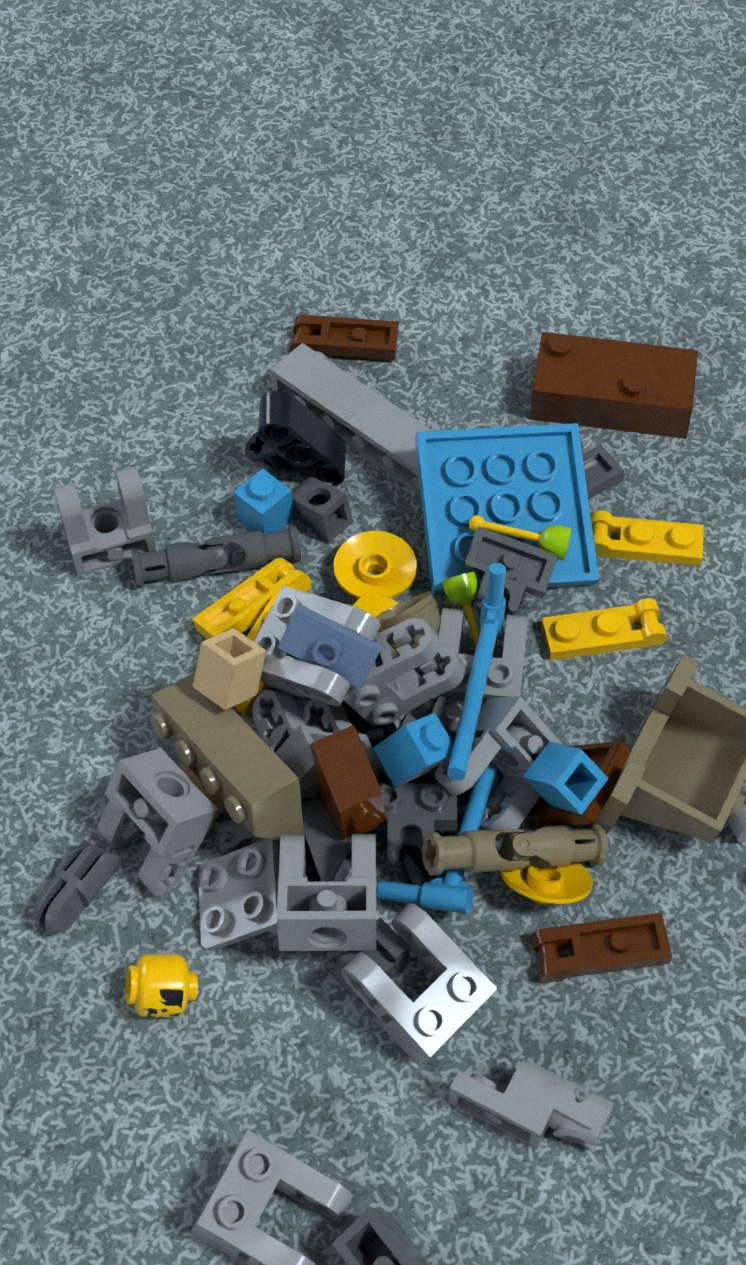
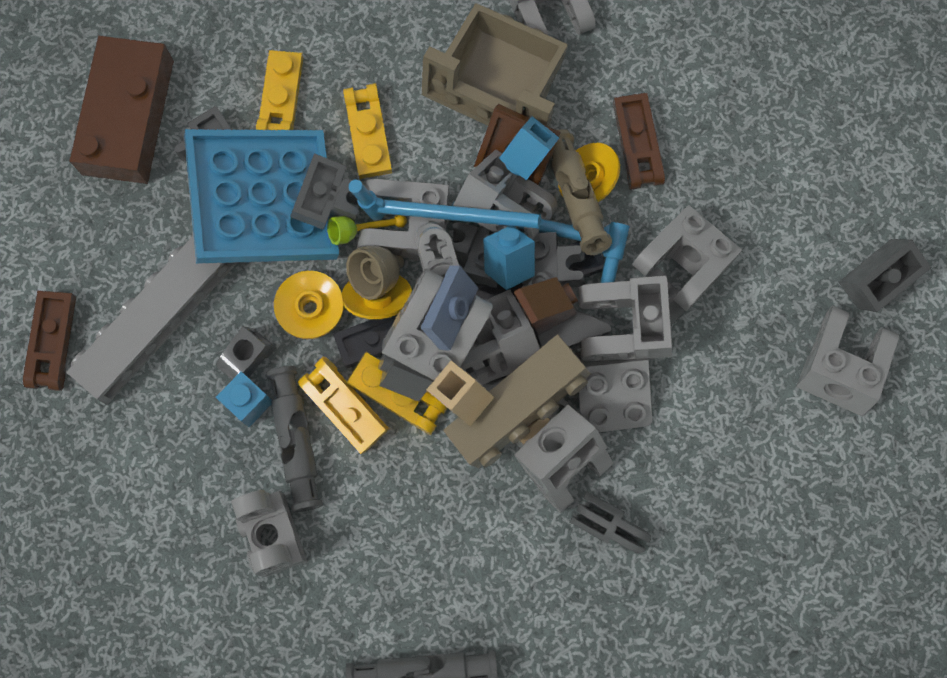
camera: 90 degrees left, 20 degrees up
(160, 985) = (689, 450): yellow head -> none
(295, 441) = (184, 372): black piece -> none
(532, 1104) = (760, 185): light grey plate -> none
(551, 539) = (298, 157): hinge -> none

